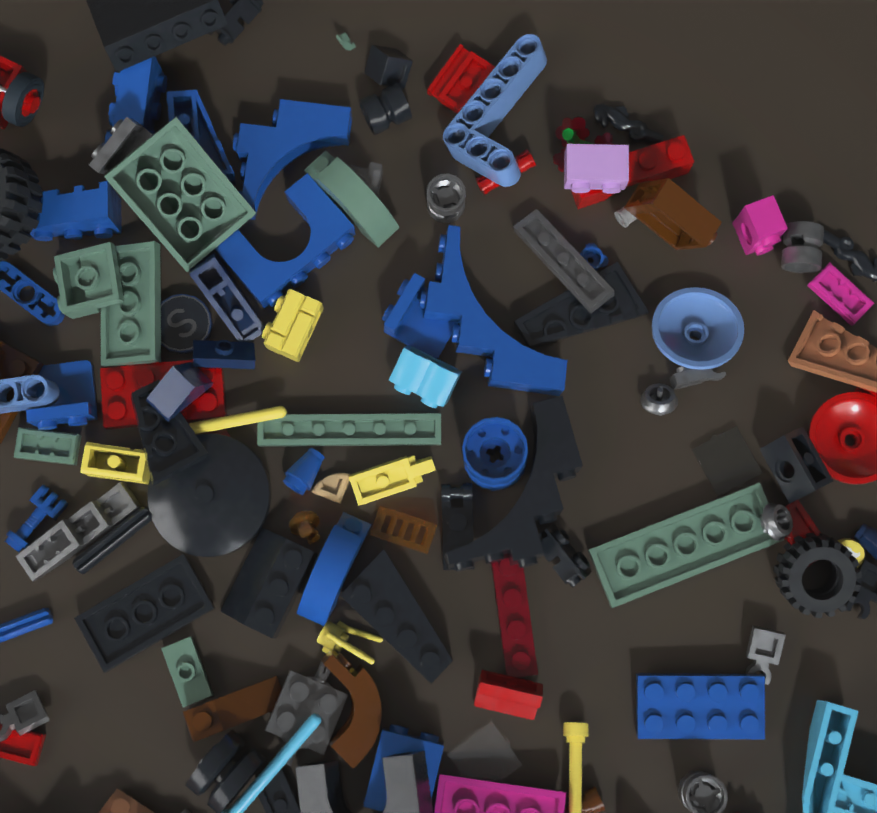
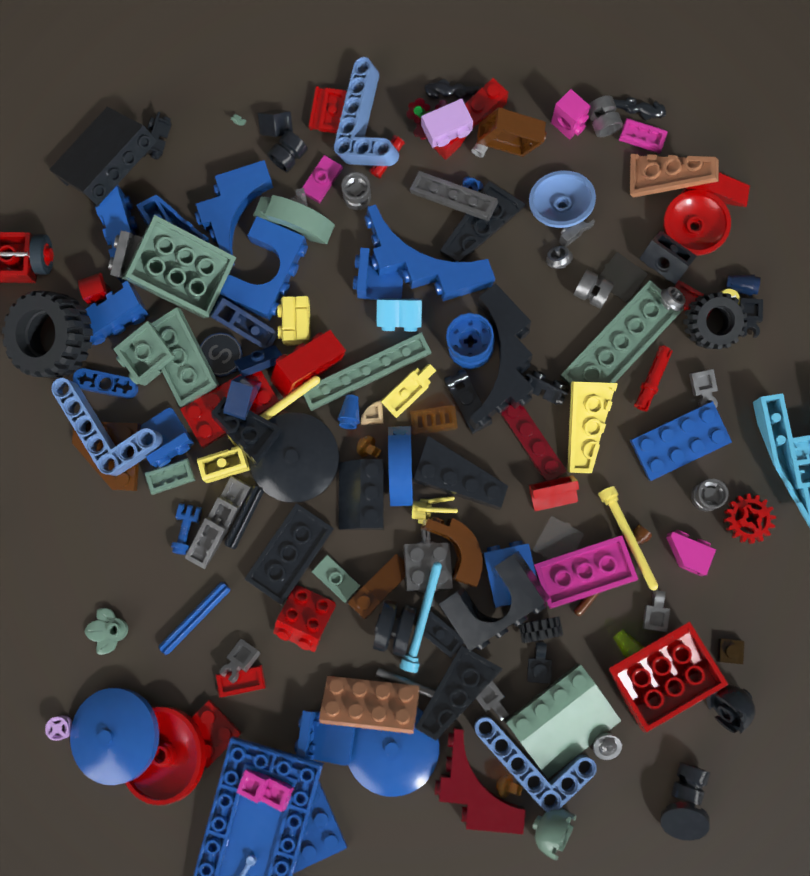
camera: 20 degrees left, 0 degrees up
(65, 171) = (93, 288): none -> red brick
(124, 702) = (304, 618): none -> red bracket
(281, 384) = (306, 362): none -> red wedge
(412, 162) = (322, 179): none -> dark pink plate
(596, 620) = (587, 422): none -> light yellow wing
(676, 451) = (587, 284): none -> flat silver wheel
(711, 603) = (653, 378): none -> red pin

